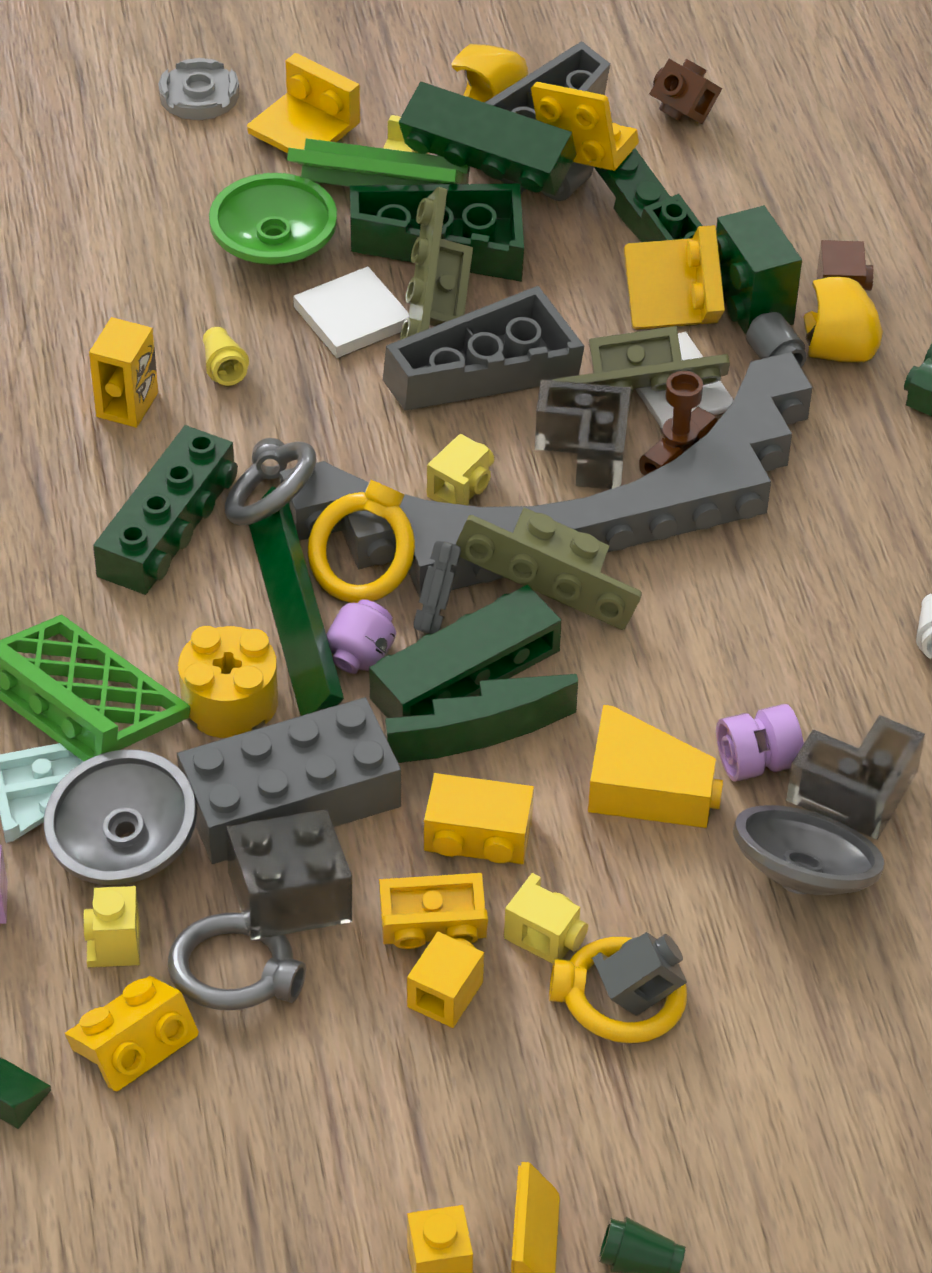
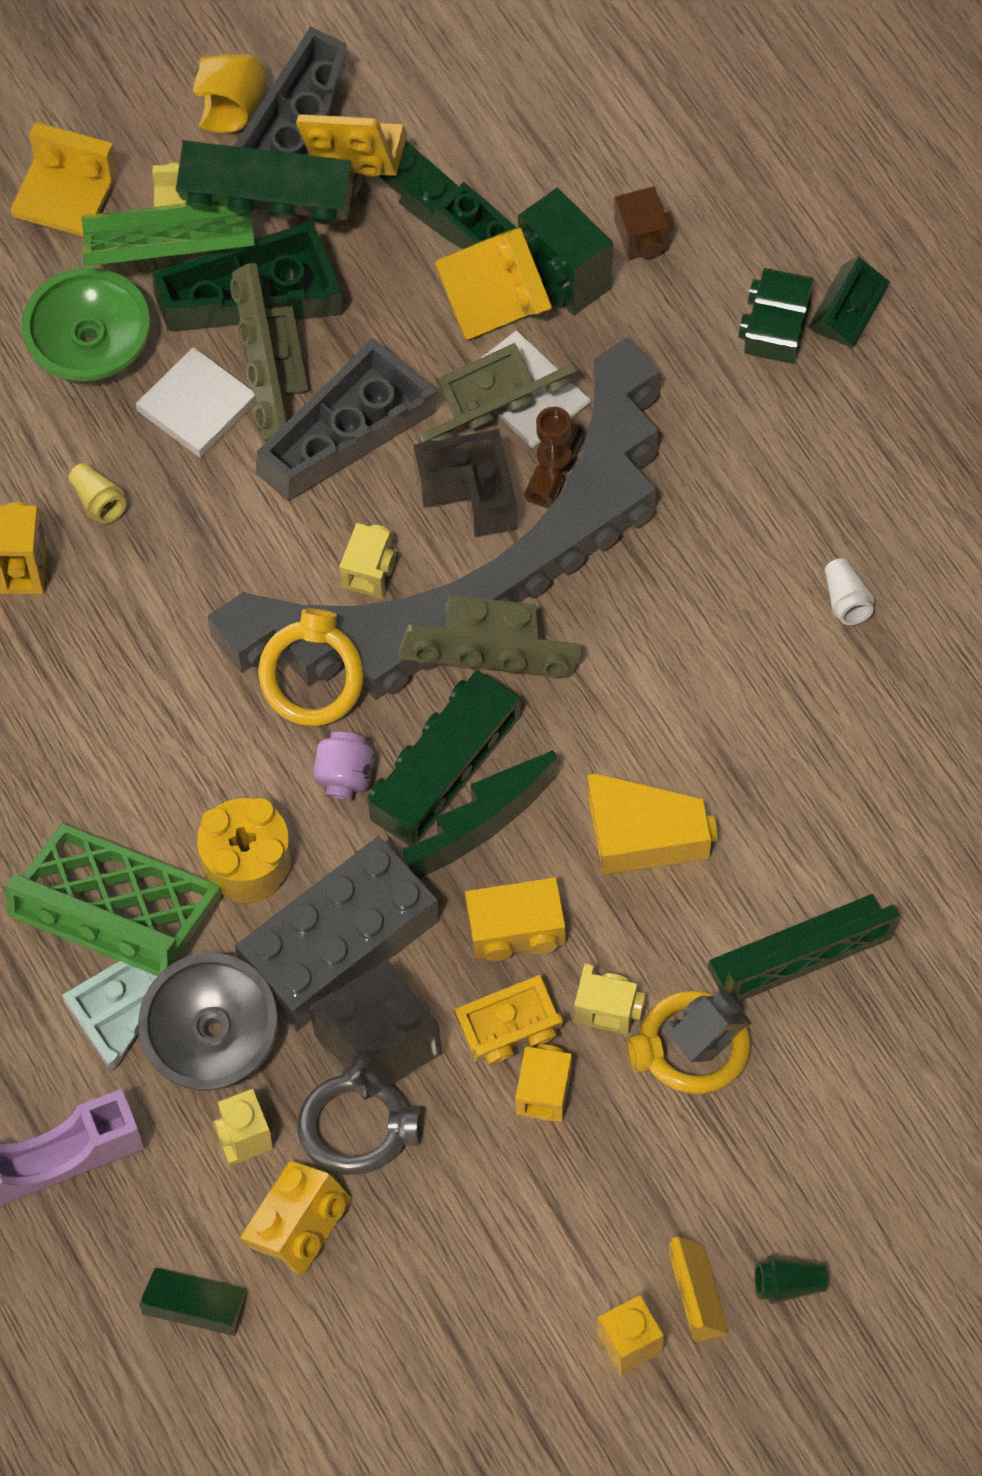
camera: 15 degrees left, 15 degrees up
(165, 510) = (113, 683): dark green brick -> none
(283, 453) = (187, 600): flat silver piece -> none
(296, 612) = (271, 751): dark green tile -> none
(437, 587) = (395, 695): dark grey axle -> none
(684, 90) = (423, 46): reddish brown brick -> none
(752, 744) = (727, 768): lavender wheel -> none
(773, 336) = (605, 321): dark grey brick -> none
(776, 932) = (803, 948): none -> dark green fence
(807, 850) = (808, 862): flat silver dish -> none
(845, 324) = (662, 285): yellow piece -> none
(856, 783) = (829, 784): clear smoke brick -> none

